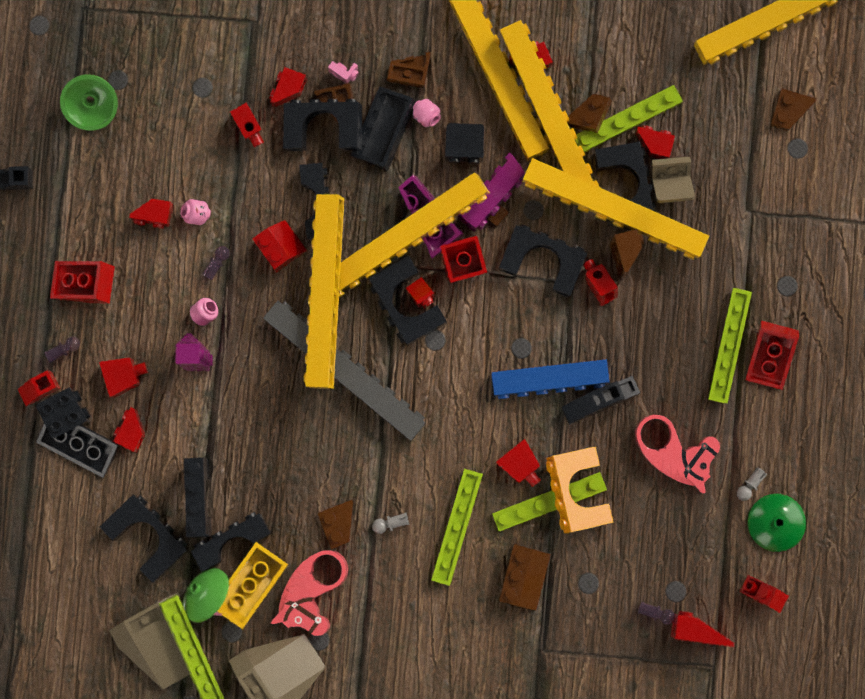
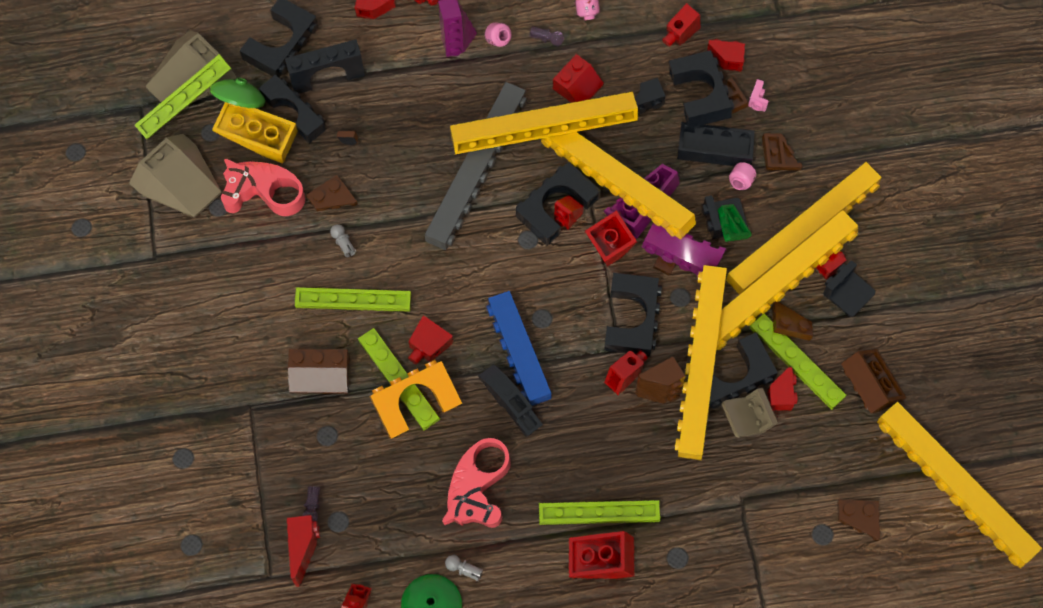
camera: 70 degrees right, 15 degrees down
(279, 492) = (348, 137): none -> tile
(478, 138) = (732, 224): none -> green wing
(571, 48) = (848, 290): none -> black bracket
(666, 55) = (873, 380): none -> reddish brown slope

